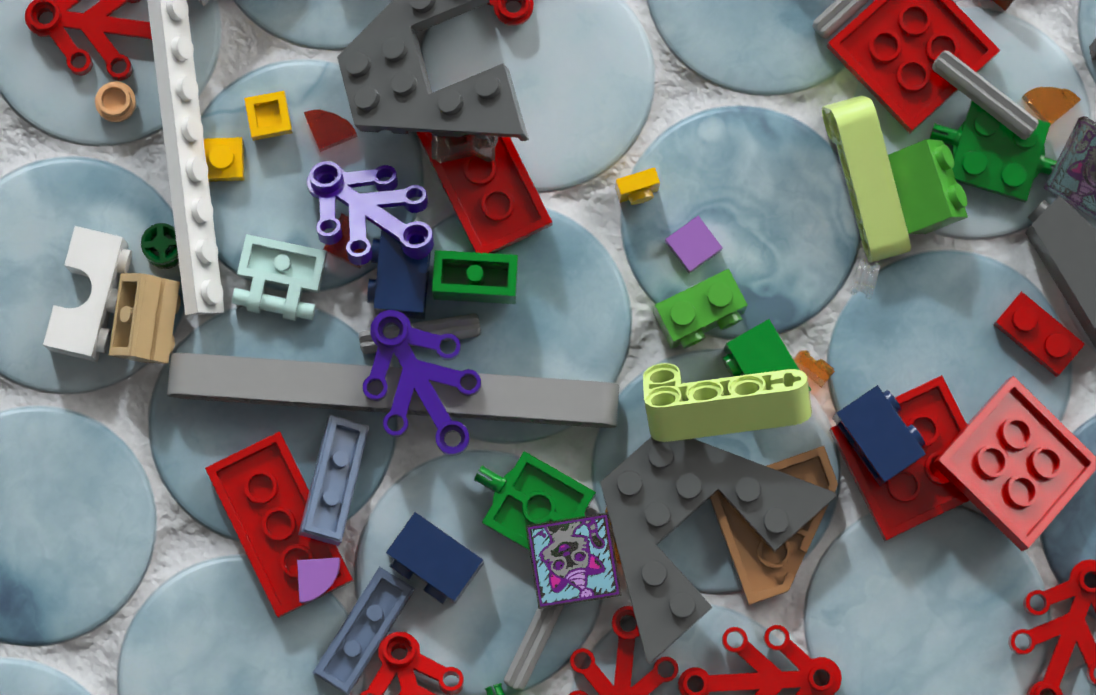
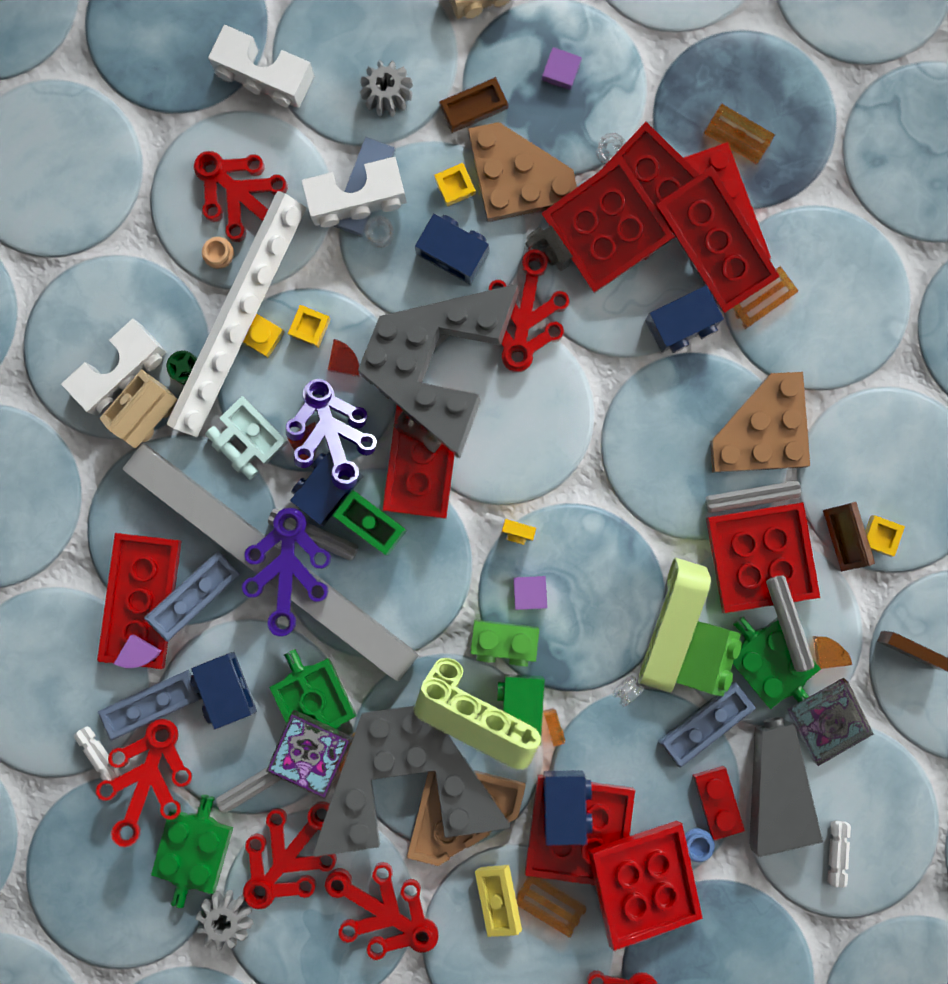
camera: 35 degrees right, 5 degrees up
(876, 586) = (498, 901): none -> light yellow plate
(969, 556) = (573, 920): none -> clear orange tile
(972, 261) = (706, 725): none -> sand blue tile
(1049, 389) = (699, 844): none -> medium blue plate

